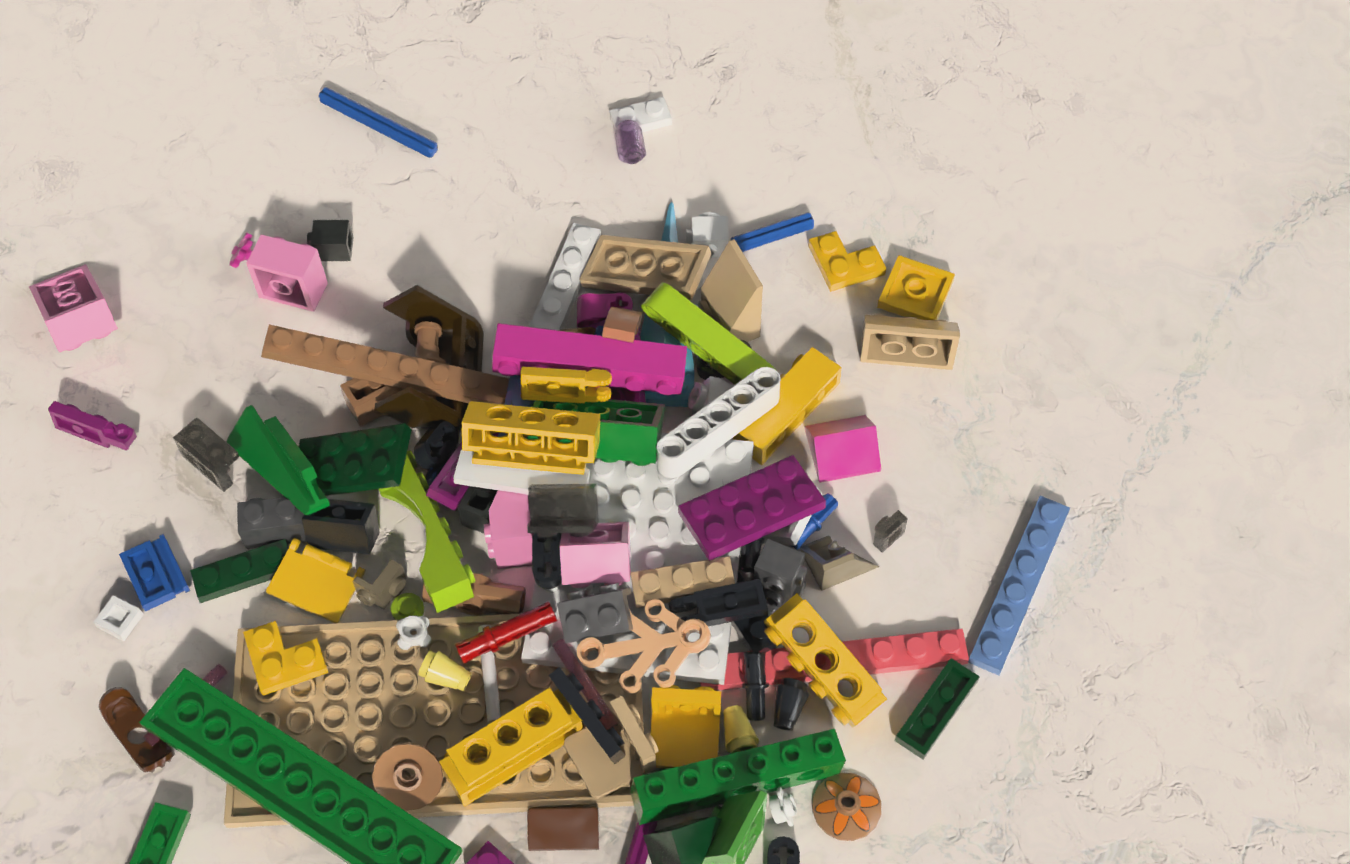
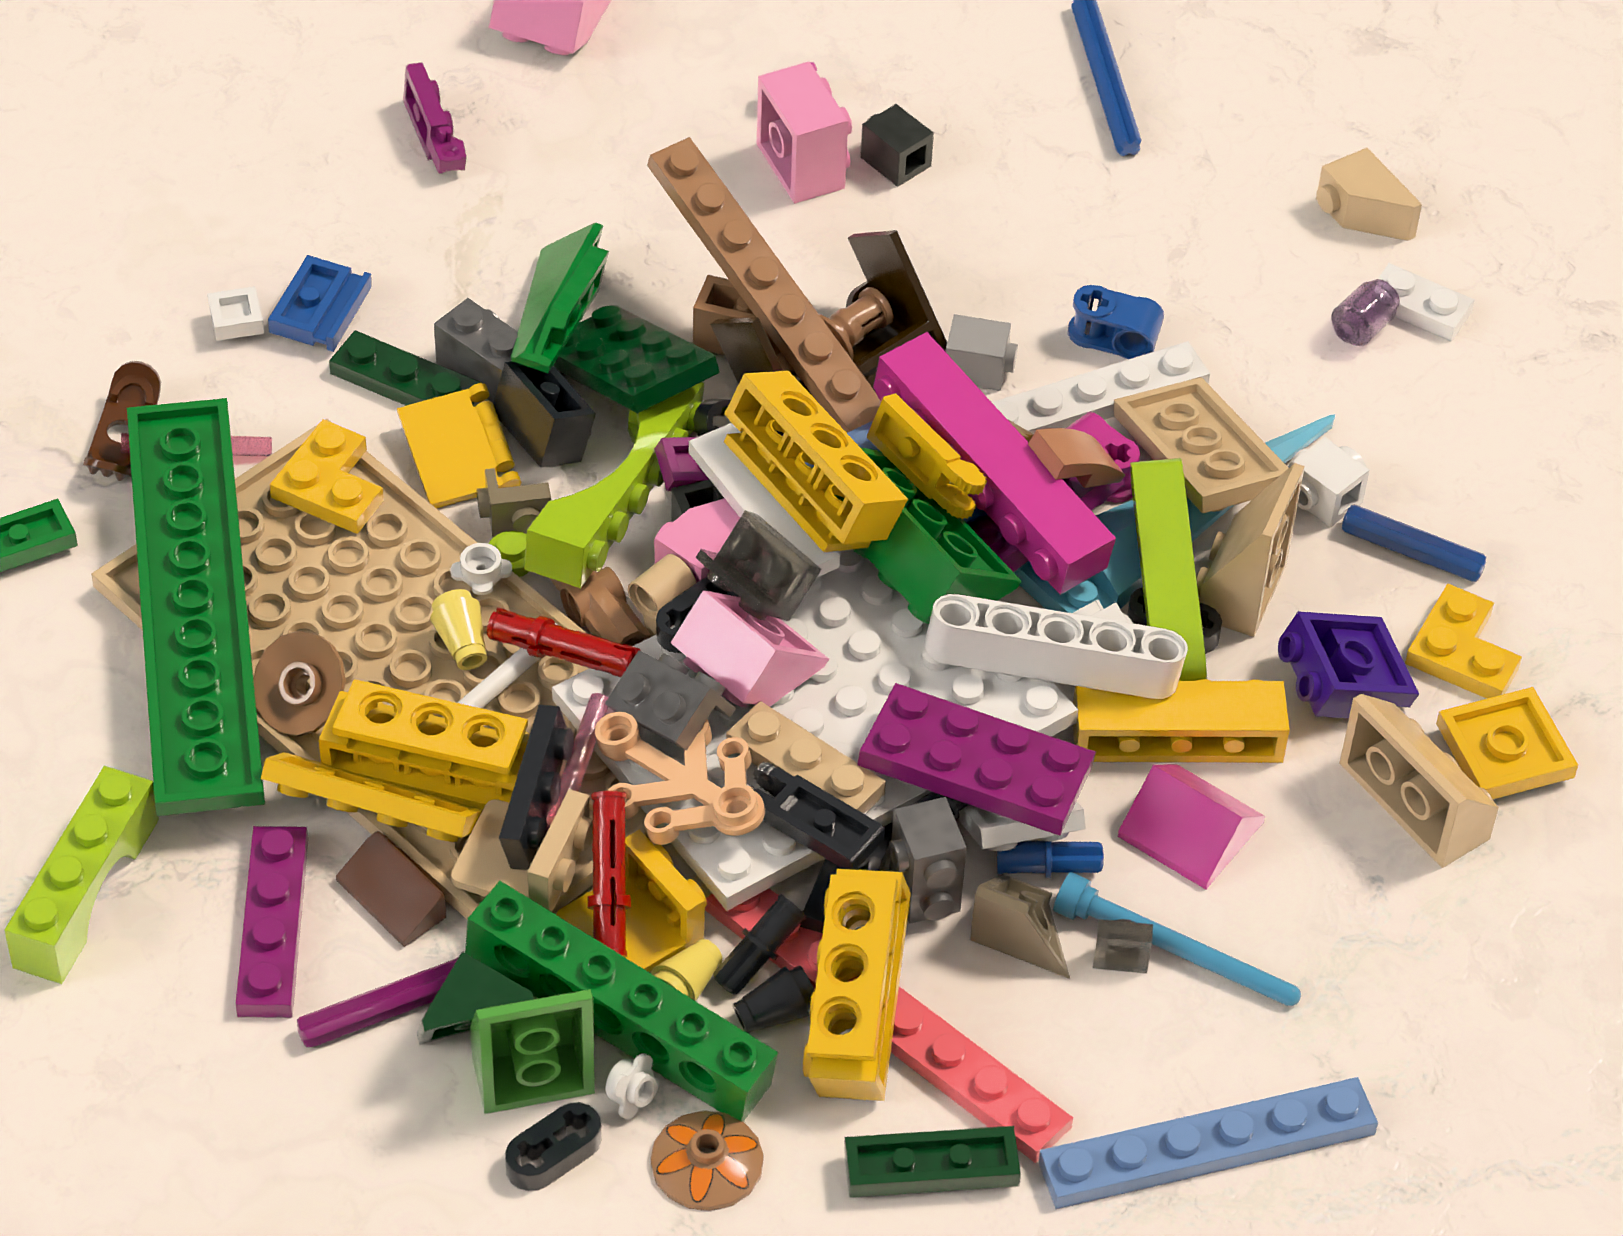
camera: 45 degrees right, 10 degrees down
(207, 452) = (504, 233): clear smoke bracket -> none
(493, 308) = (982, 349): none -> light grey brick
(509, 795) = (350, 791): none -> yellow plate
(518, 563) = (659, 586): none -> tan piece
(536, 239) = (1120, 324): none -> blue piece
(565, 85) = (1368, 197): none -> tan slope
(677, 734) = (609, 883): none -> red pin
(818, 315) = (1344, 658): none -> dark purple plate
(845, 527) = (1081, 900): none -> dark azure piece

